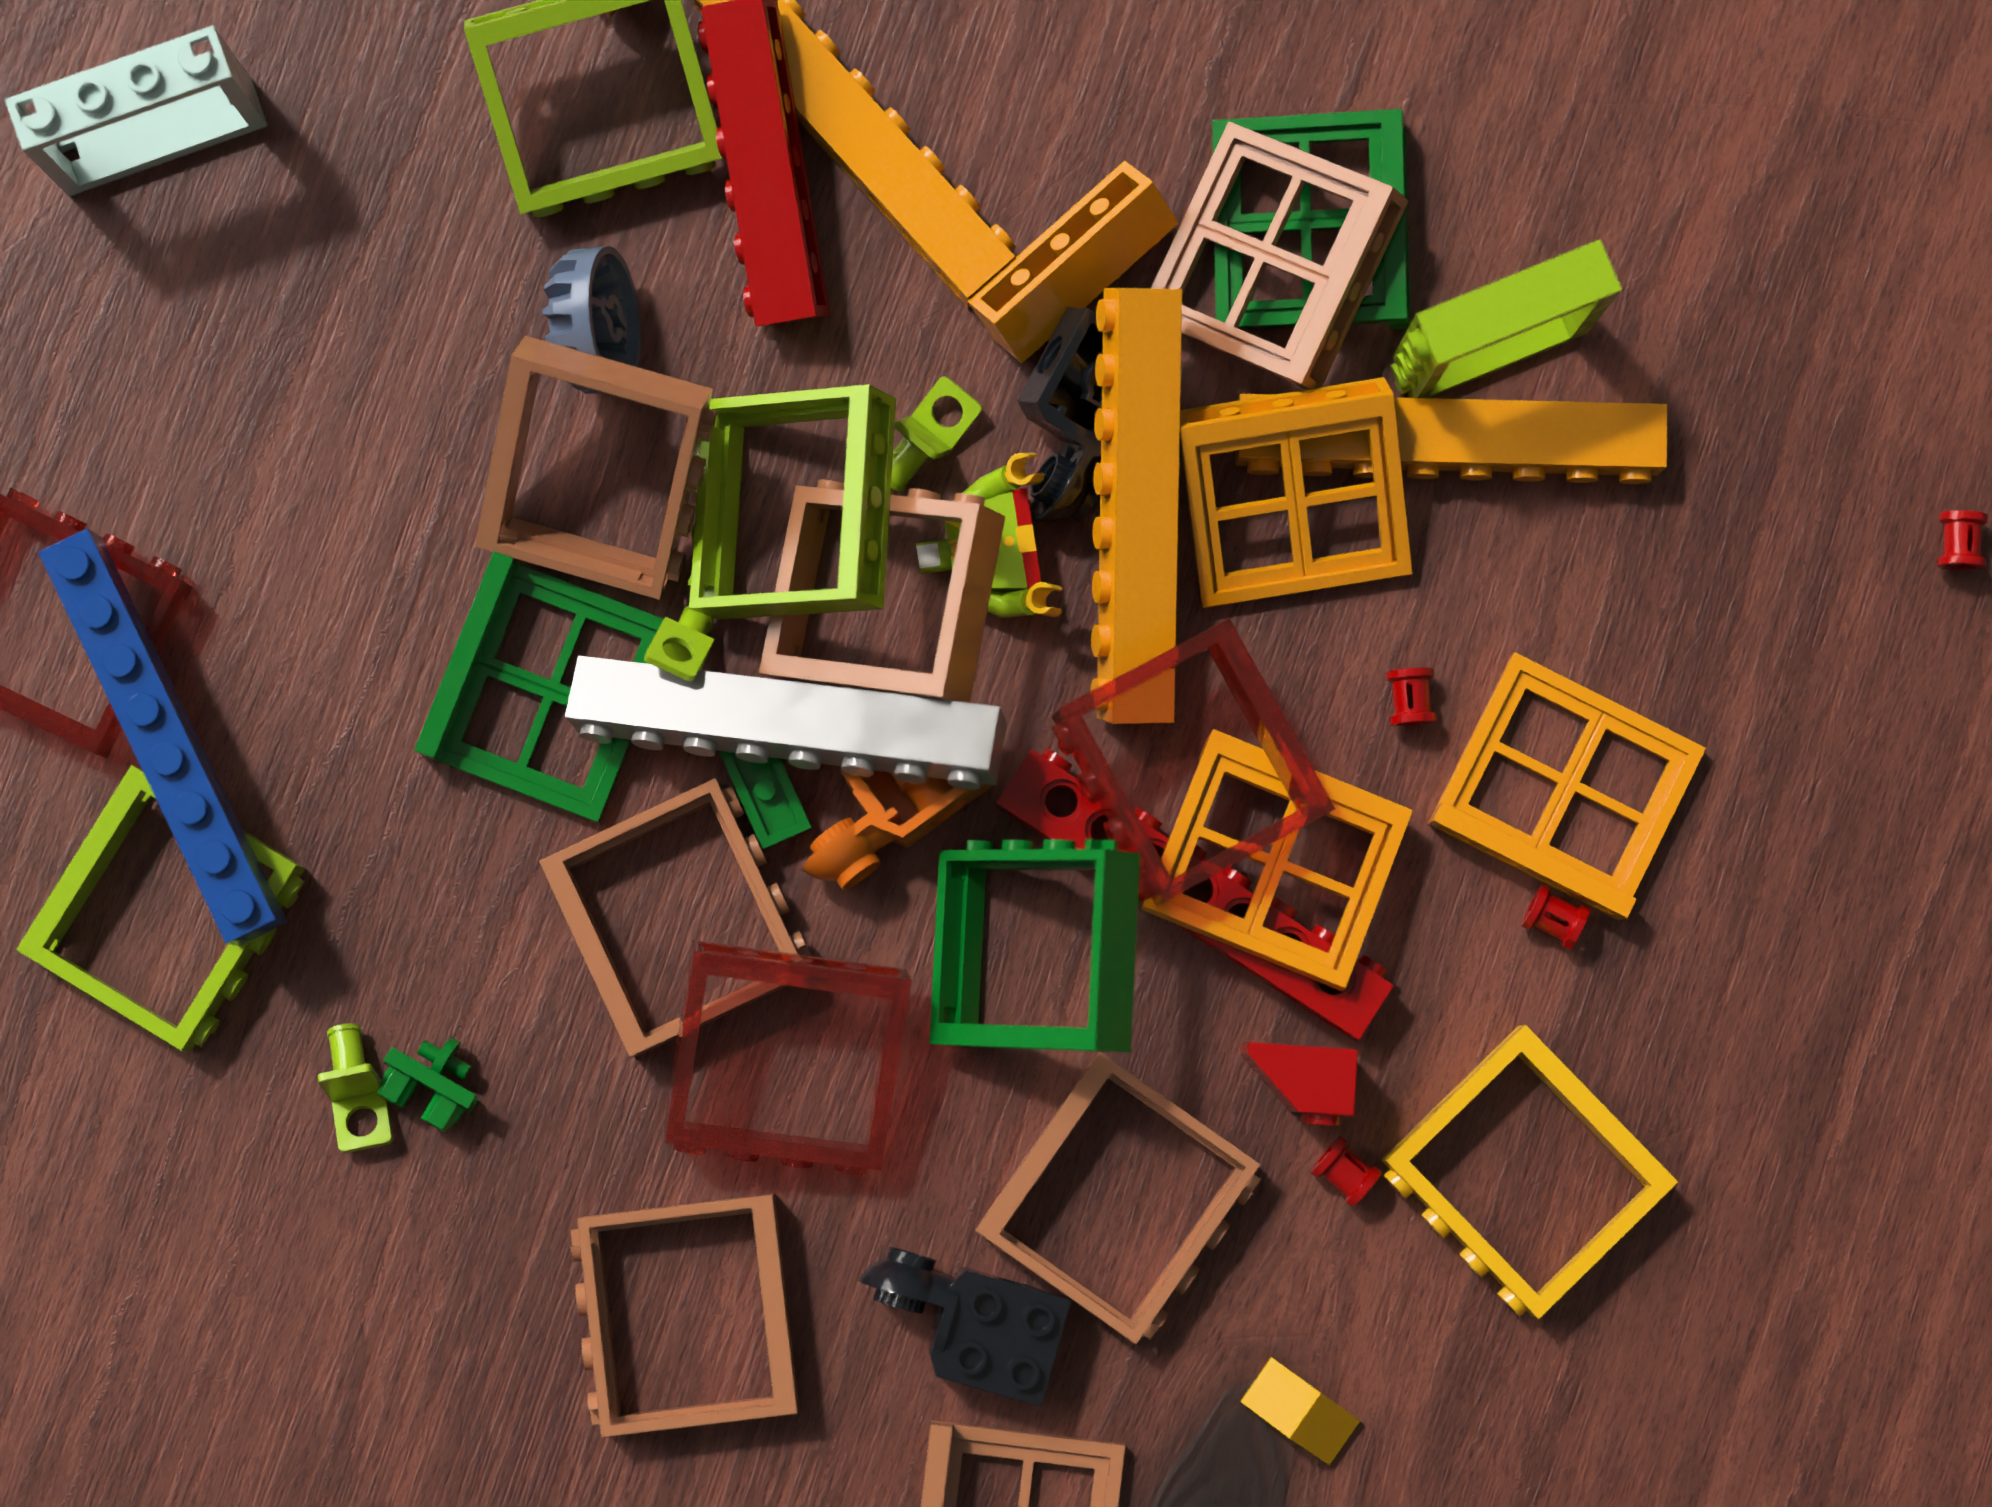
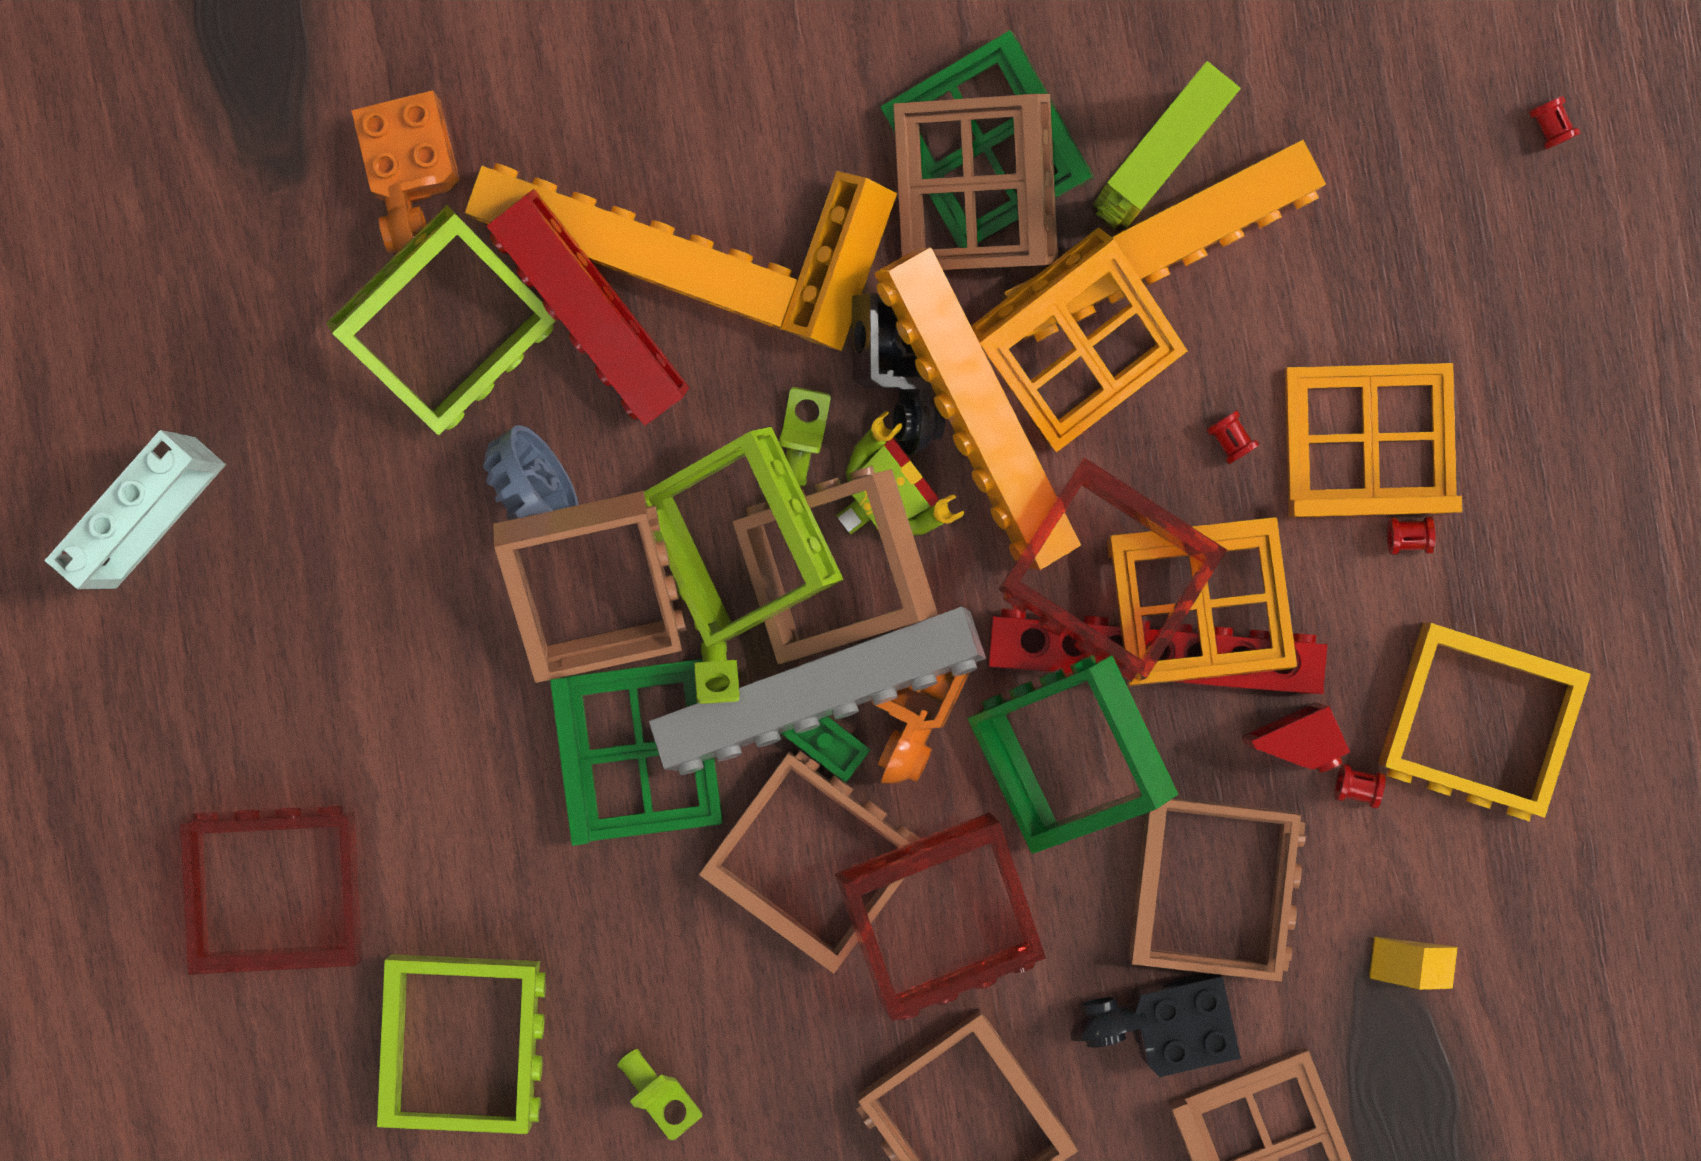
camera: 25 degrees left, 5 degrees up
(162, 737) = (396, 932): blue brick -> none
(406, 1074) = (687, 1064): green hips -> none

